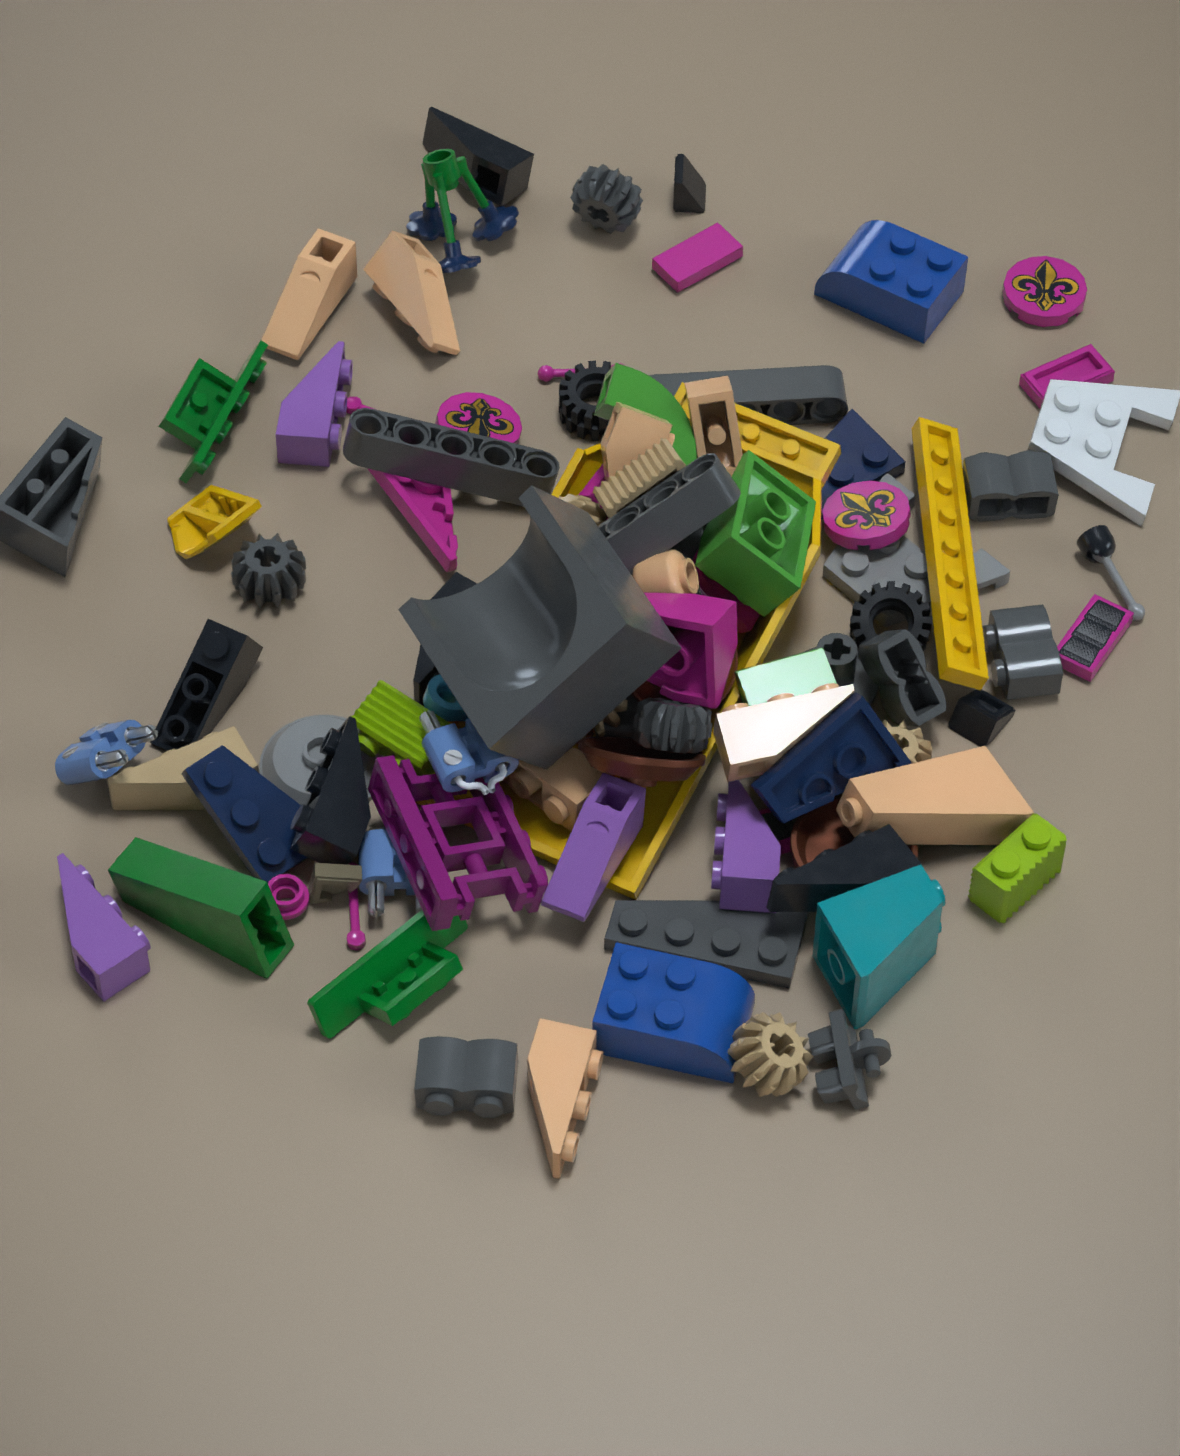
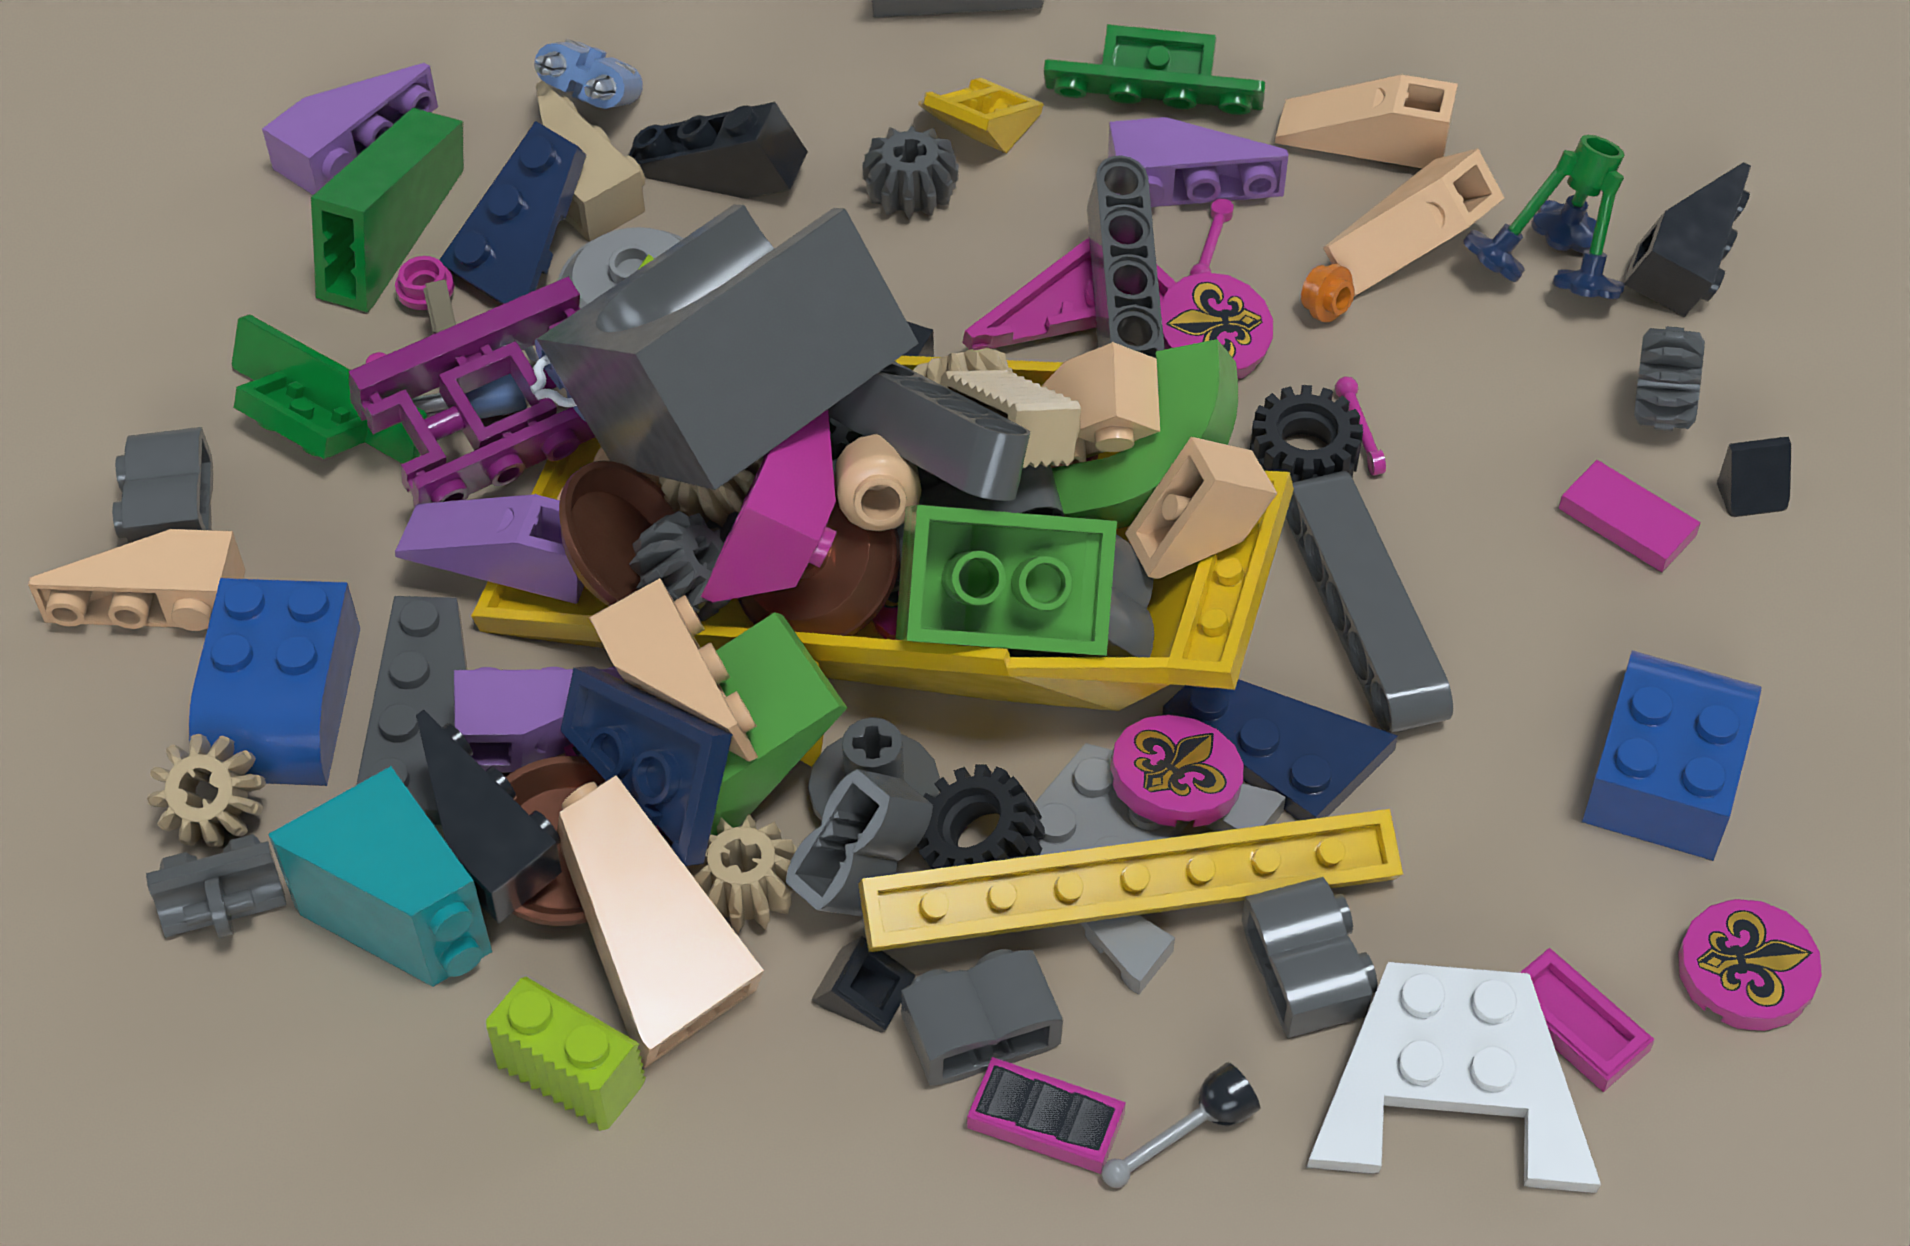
camera: 80 degrees right, 0 degrees up
(338, 807) = (507, 270): black slope -> none
(465, 358) = (1328, 292): none -> orange plate

